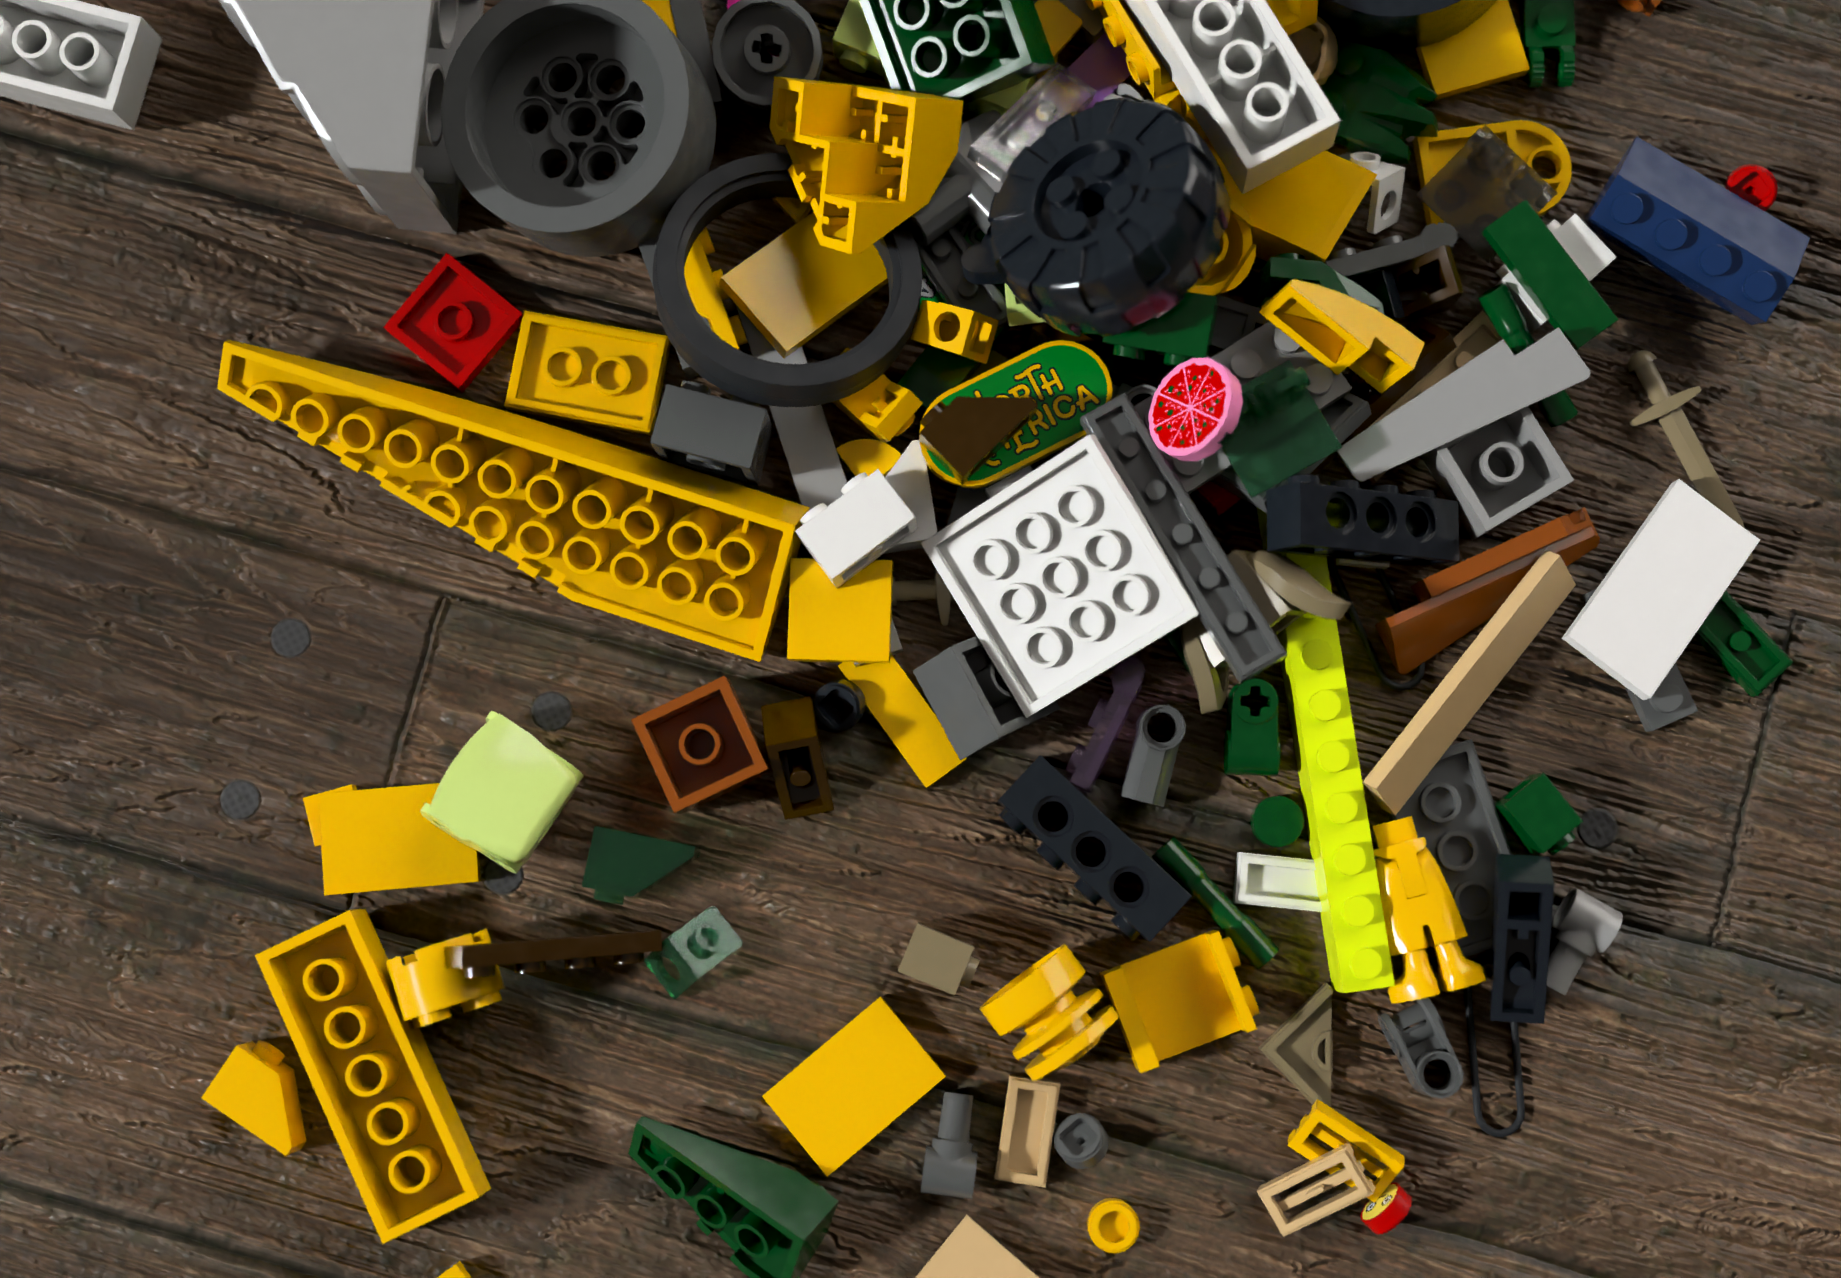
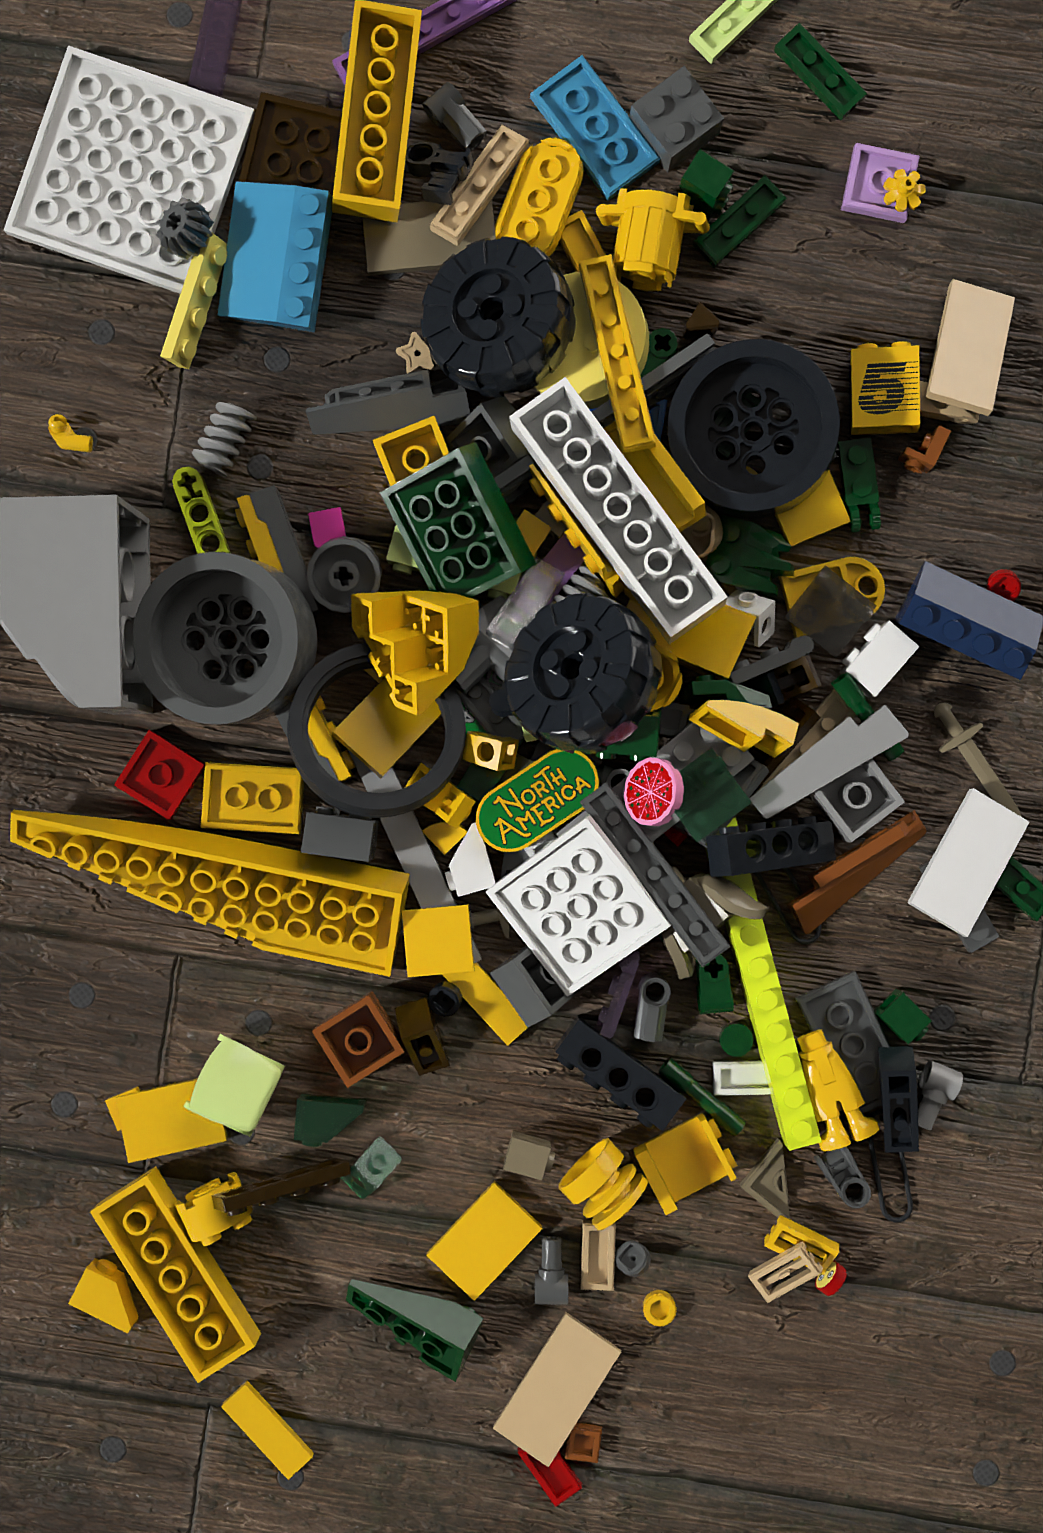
camera: 15 degrees left, 5 degrees up
(856, 526) = (442, 889): white brick -> none
(973, 430) = (510, 819): dark brown slope -> none
(1469, 682) = (851, 937): tan tile -> none
(1549, 275) = (876, 666): dark green tile -> none

